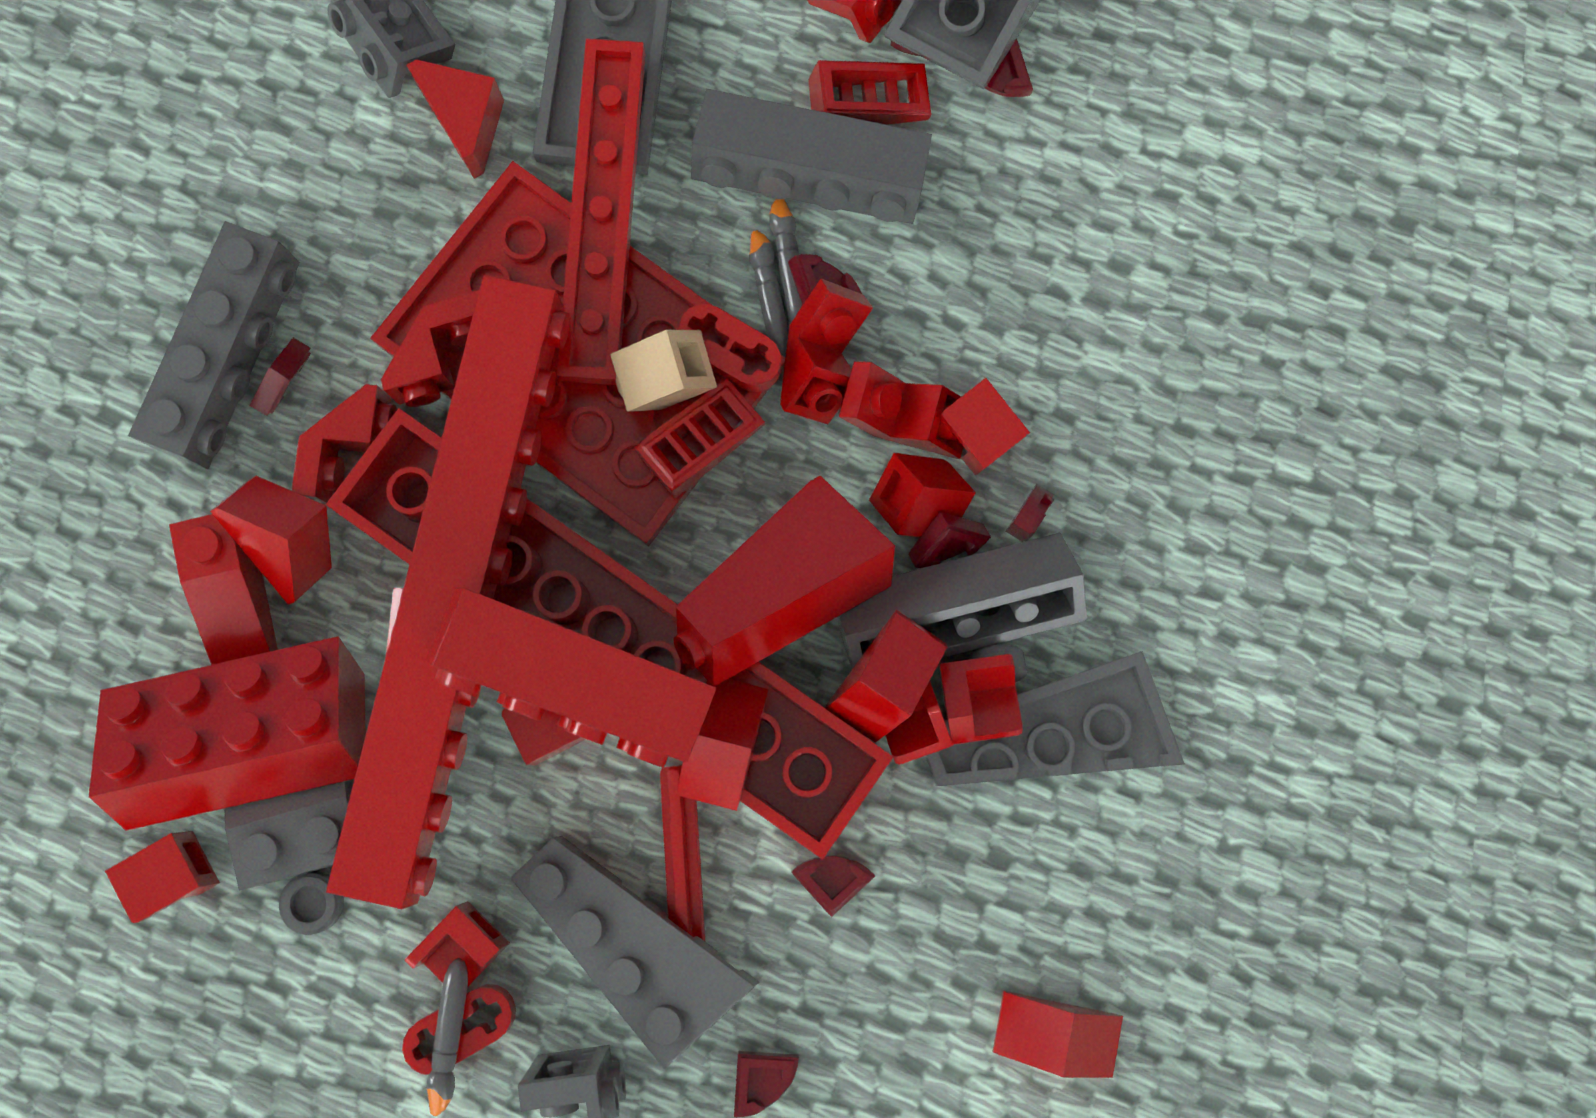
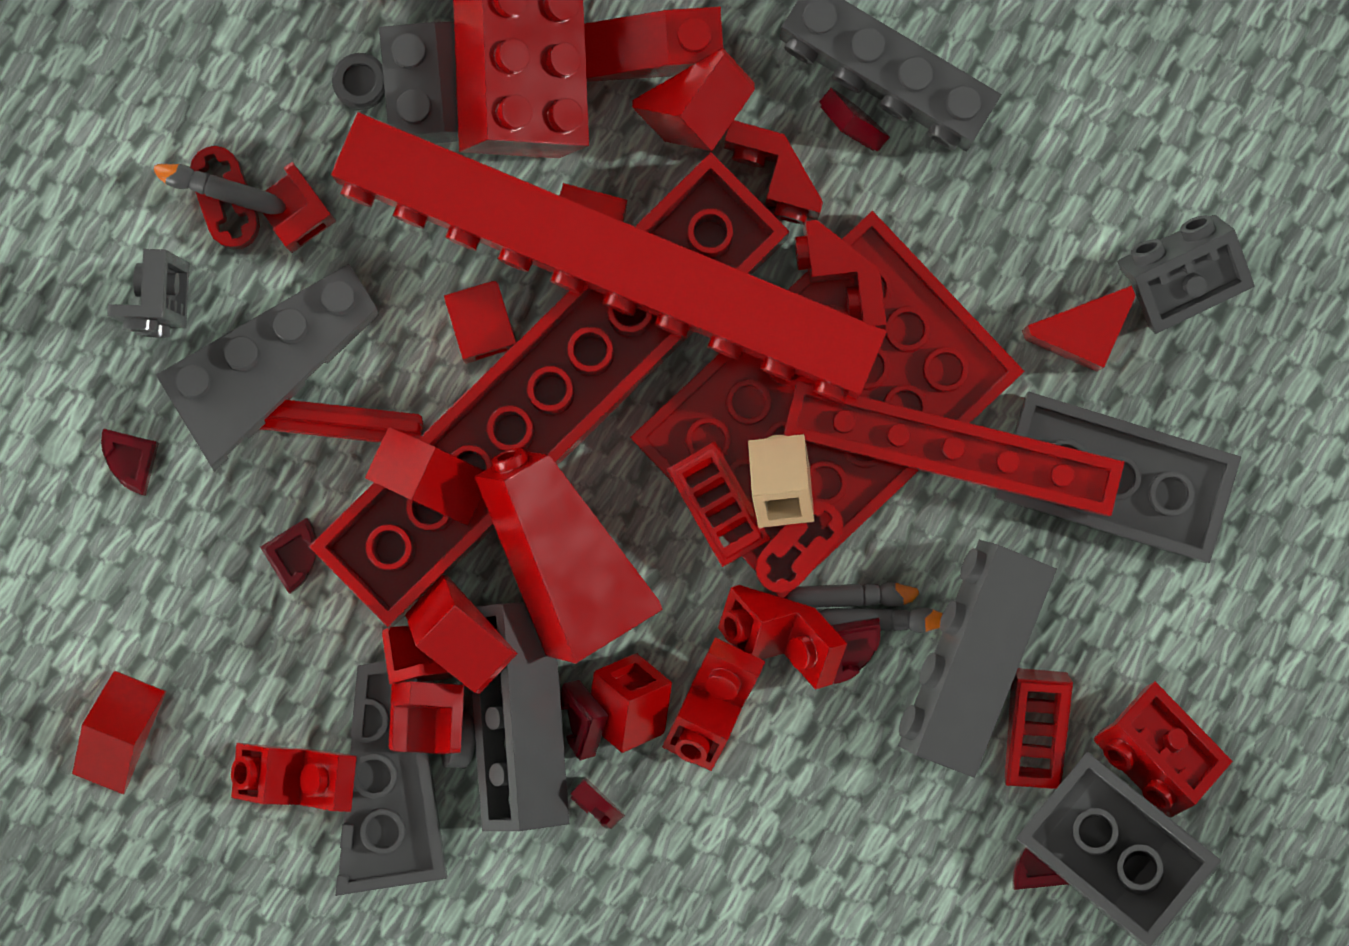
camera: 100 degrees right, 5 degrees up
(569, 674) = (500, 352): red brick -> none
(983, 425) = (682, 772): red panel -> none
(1067, 833) = (293, 776): none -> red slope

